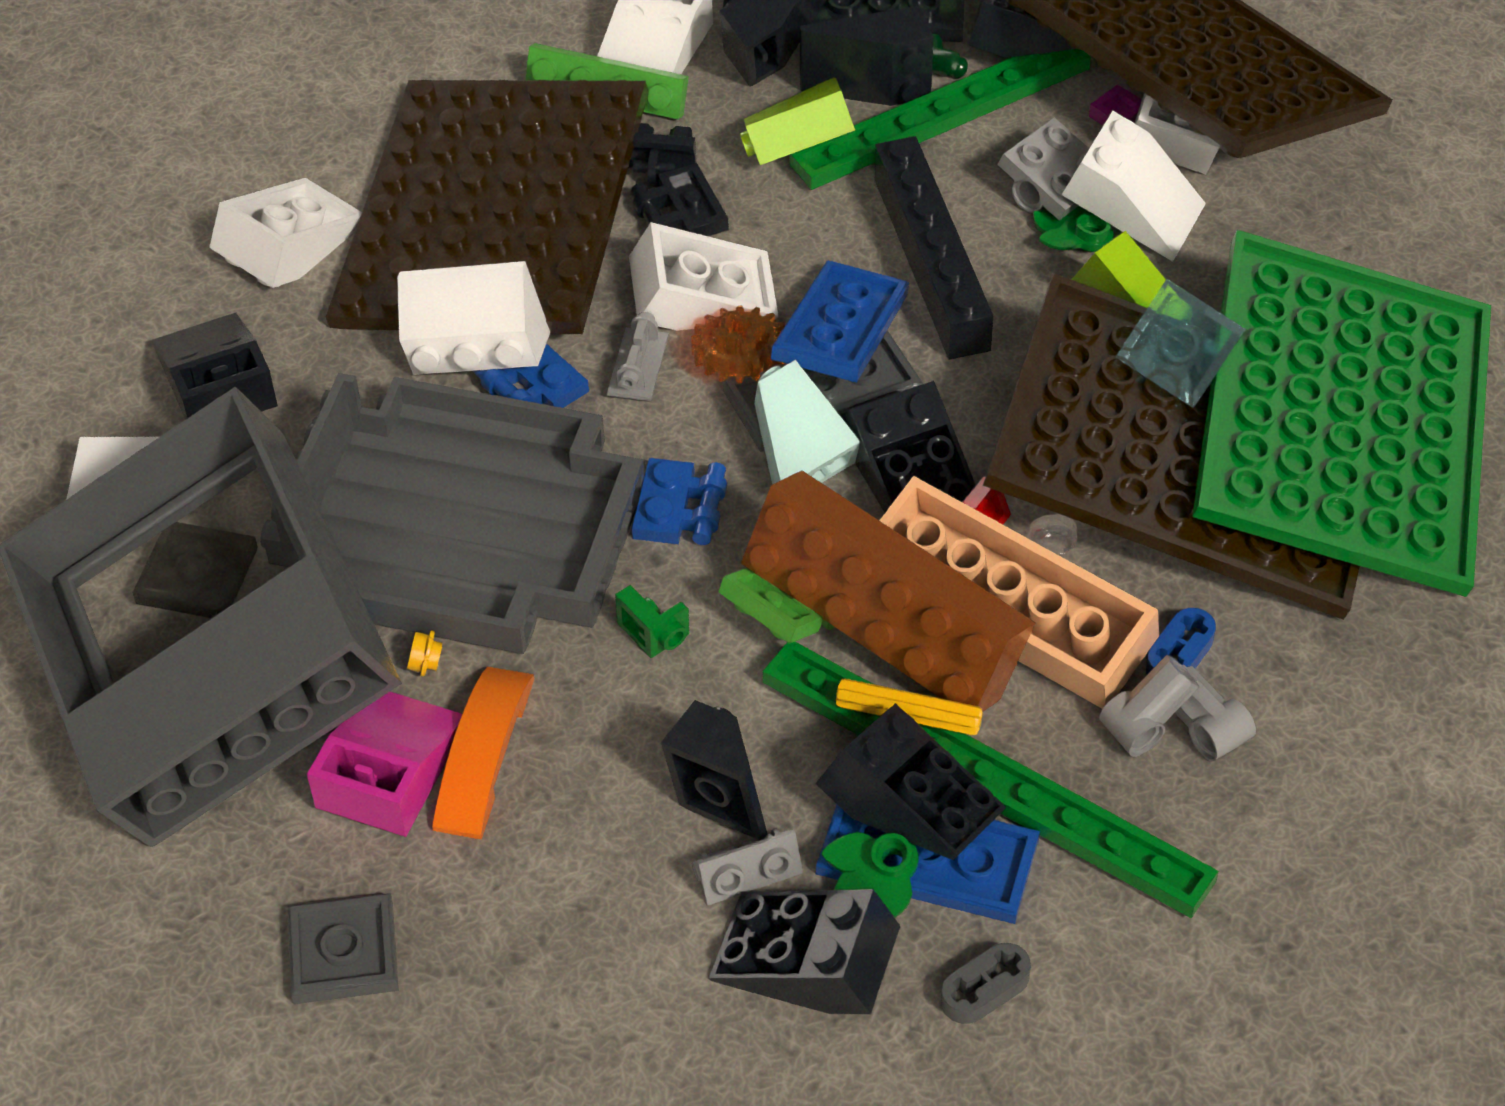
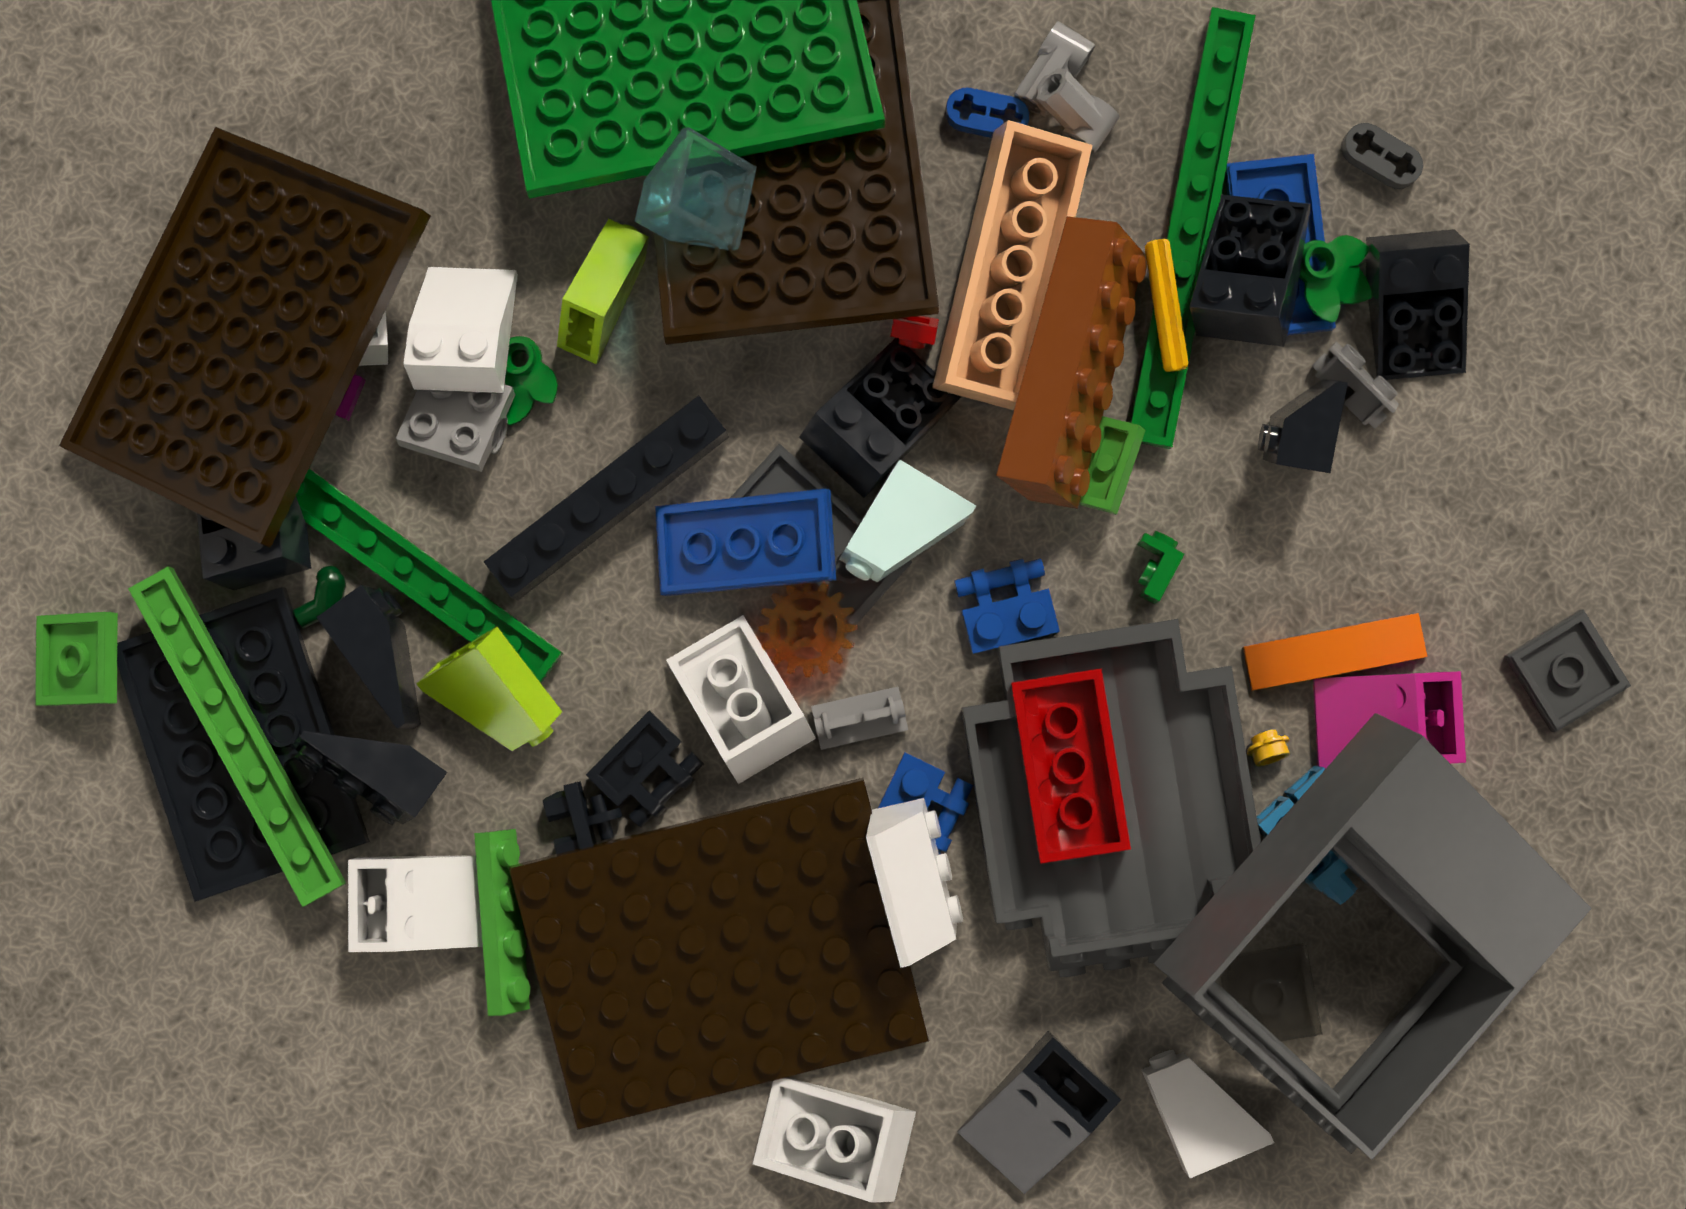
camera: 115 degrees left, 35 degrees up
(500, 478) = (1070, 766): none -> red slope

